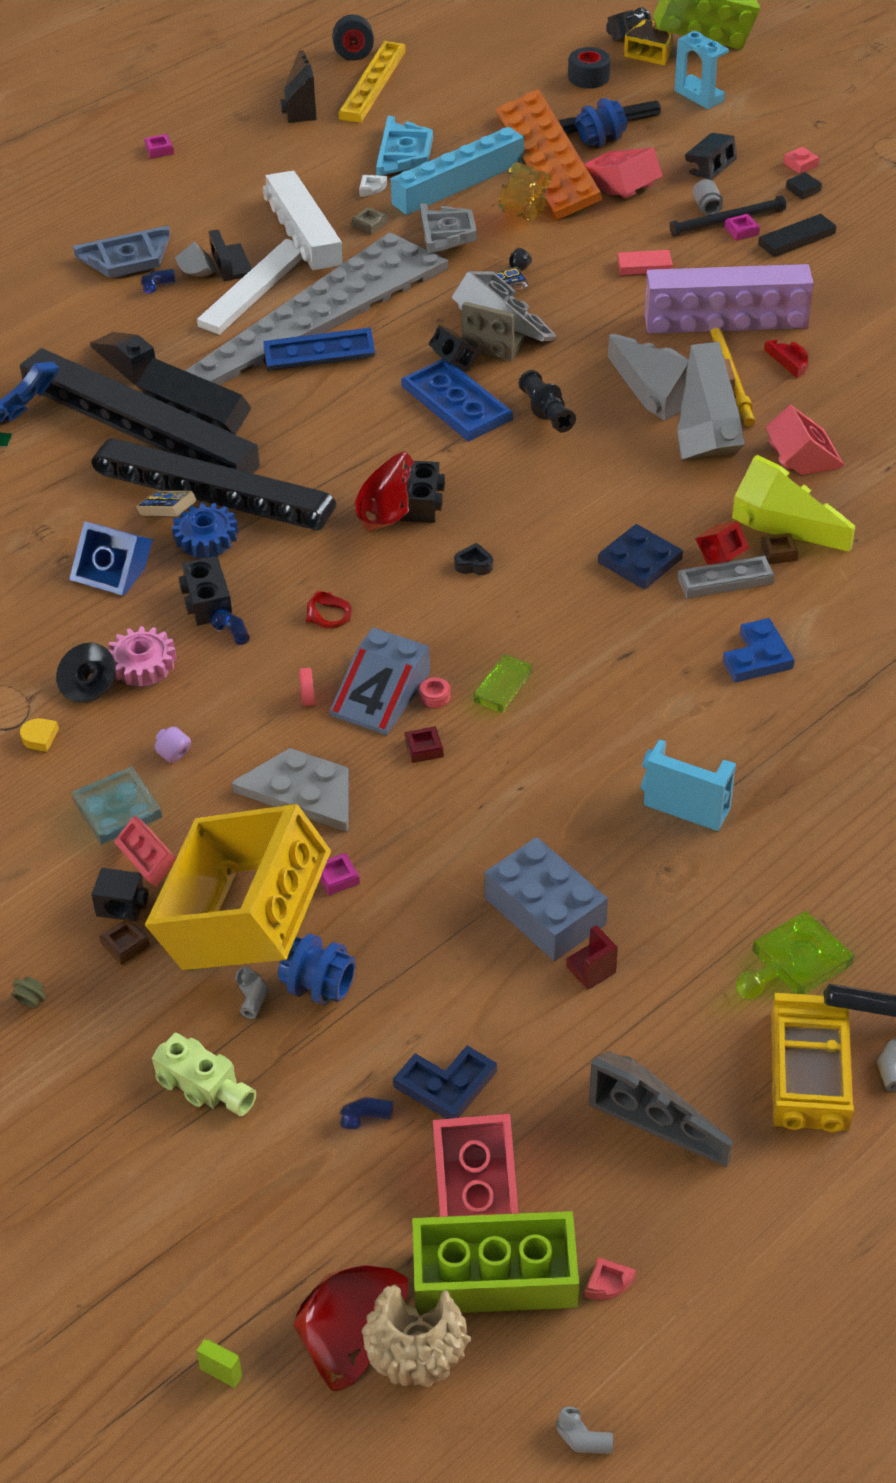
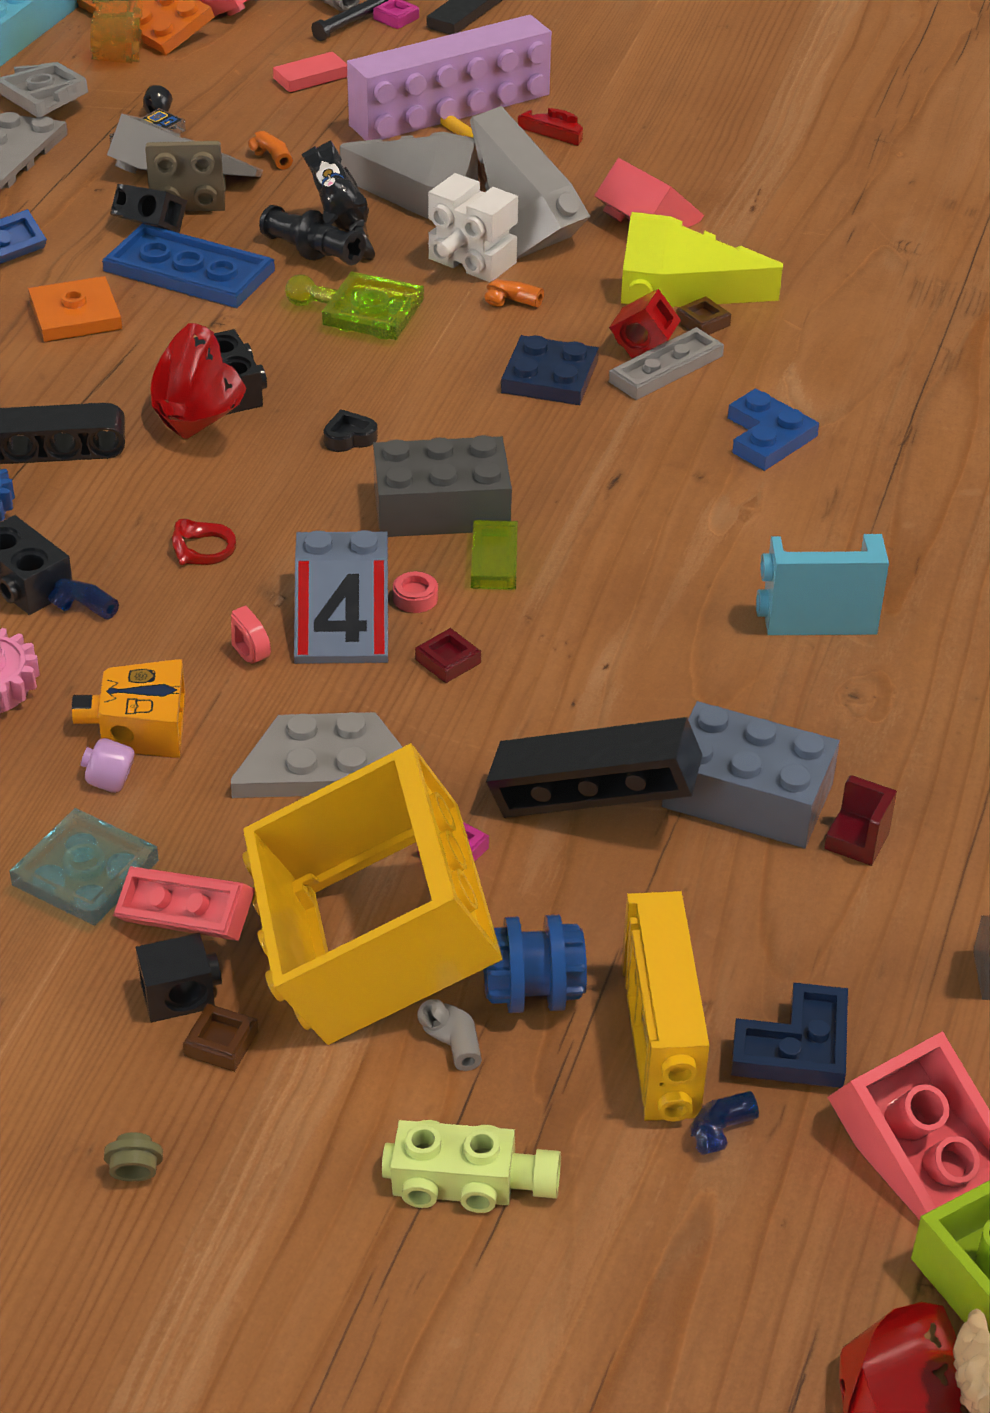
camera: 30 degrees left, 5 degrees down
(212, 713) = (138, 707): none -> light orange torso
(361, 411) = (75, 308): none -> orange plate
(368, 1028) = (664, 1006): none -> yellow door
(439, 858) = (595, 768): none -> black brick
(497, 621) = (440, 485): none -> dark grey brick
(549, 467) = (361, 303): none -> clear neon green plate
(576, 321) = (277, 148): none -> orange arm
(580, 376) = (338, 192): none -> black animal
(653, 429) = (472, 227): none -> white brick
(660, 486) = (515, 291): none -> orange arm

